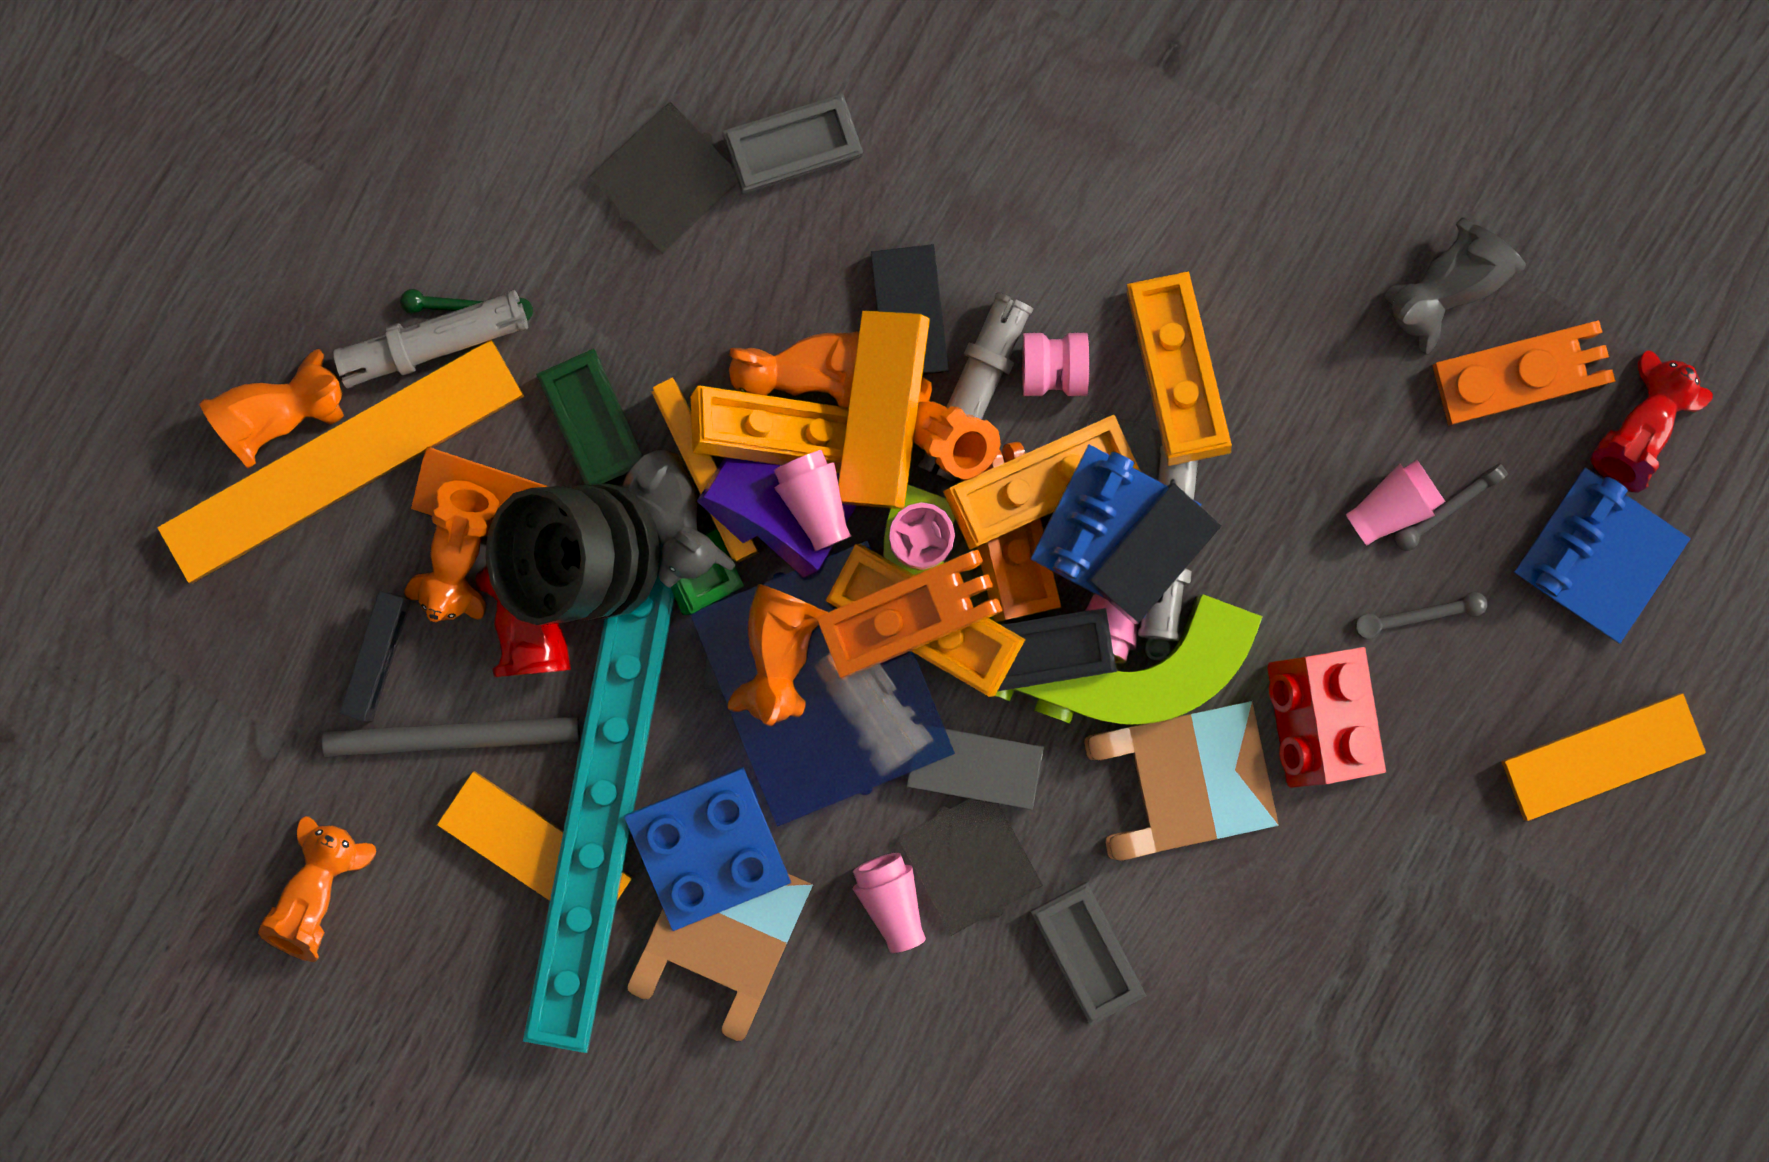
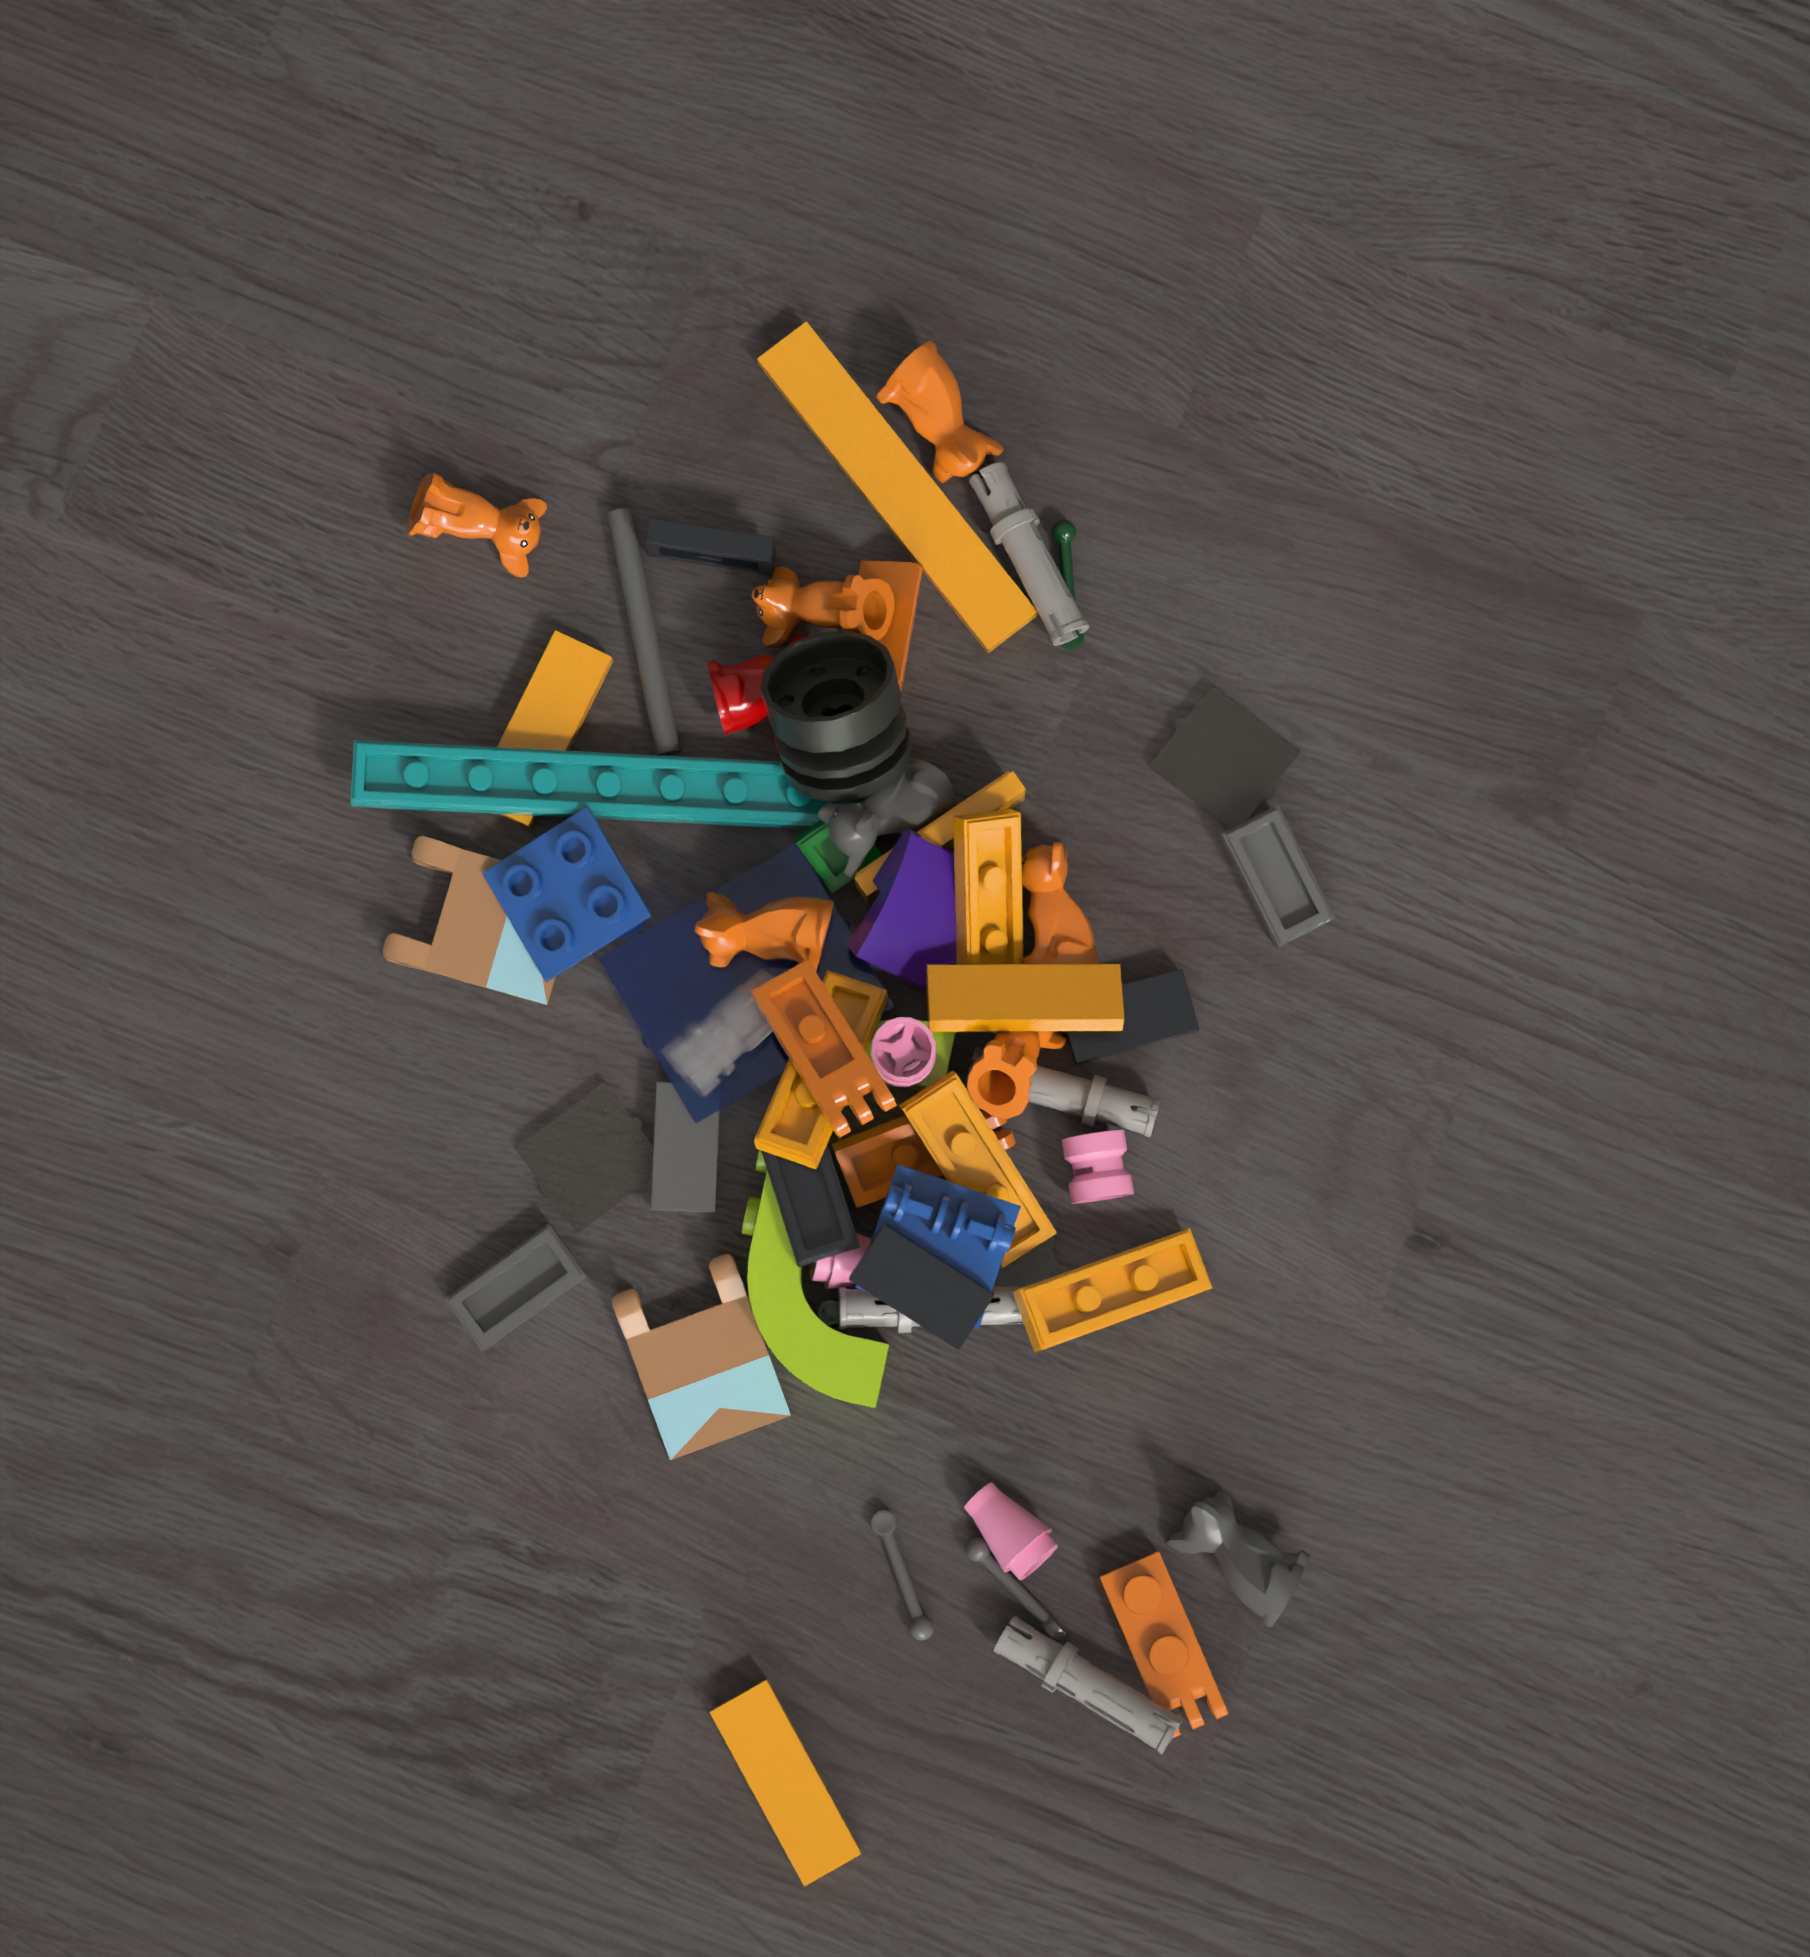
camera: 90 degrees right, 5 degrees down
(590, 418) = (975, 720): dark green tile -> none
(814, 498) = (926, 940): bright pink cone -> none
(890, 898) = (542, 1082): bright pink cone -> none
(1326, 718) = (784, 1492): bracket -> none
(1554, 450) = (1099, 1691): none -> light grey pin
(1602, 555) = (990, 1751): blue hinge -> none
(1632, 450) = (1097, 1763): red animal -> none

